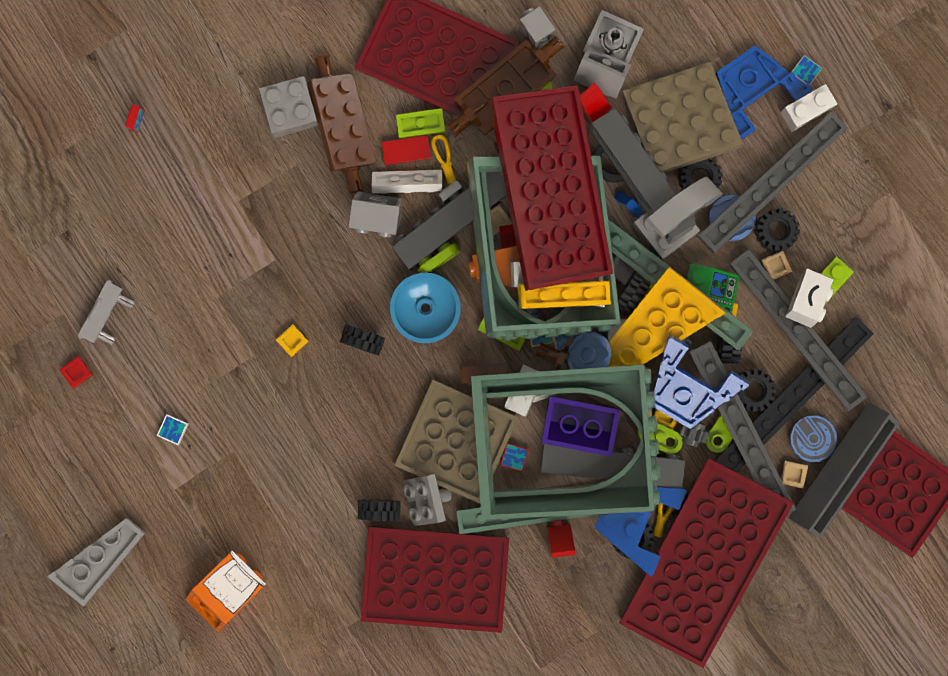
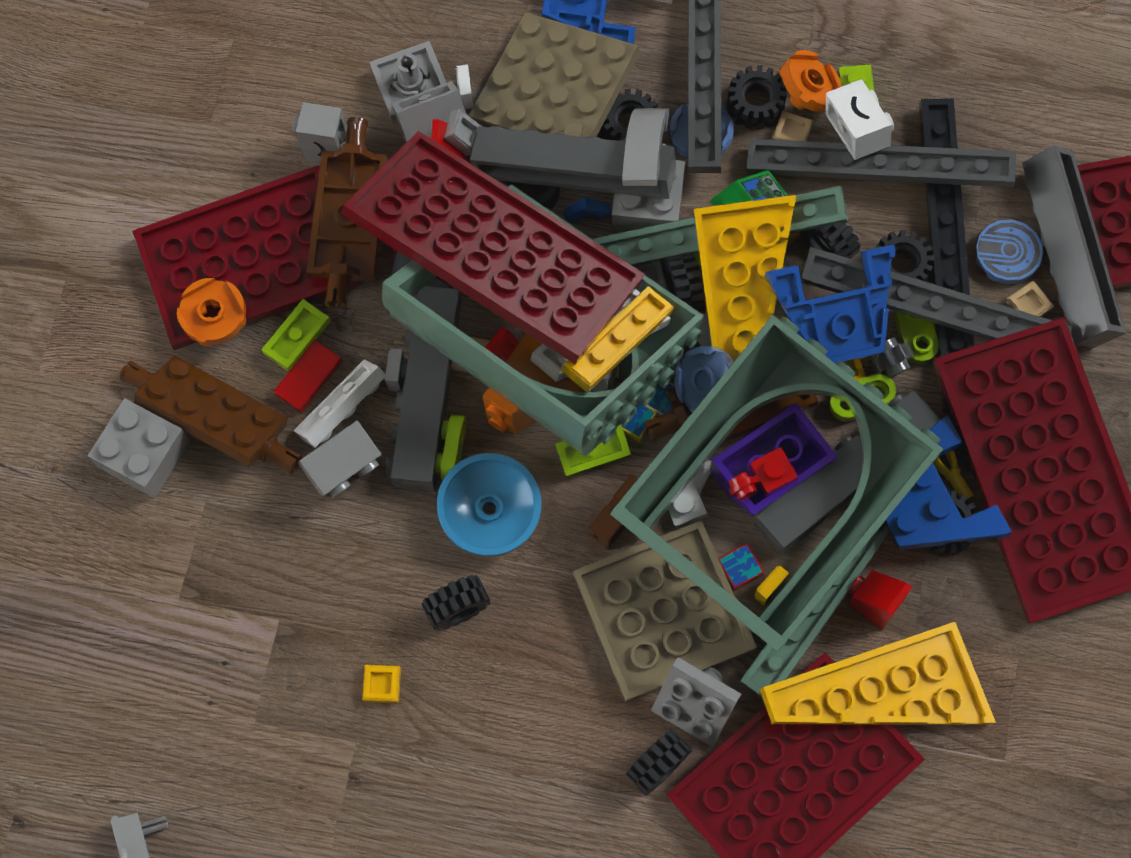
camera: 40 degrees left, 15 degrees down
(383, 59) = (212, 330): none -> orange plate
(447, 166) = (365, 350): yellow piece -> none
(521, 481) = (771, 585): none -> yellow tile
(529, 589) = (901, 683): none -> yellow wing
(570, 432) = (770, 472): none -> red plate
(604, 102) = (461, 131): none -> light grey tile
(635, 73) = (464, 86): none -> white tile
(801, 249) = (808, 80): none -> orange plate

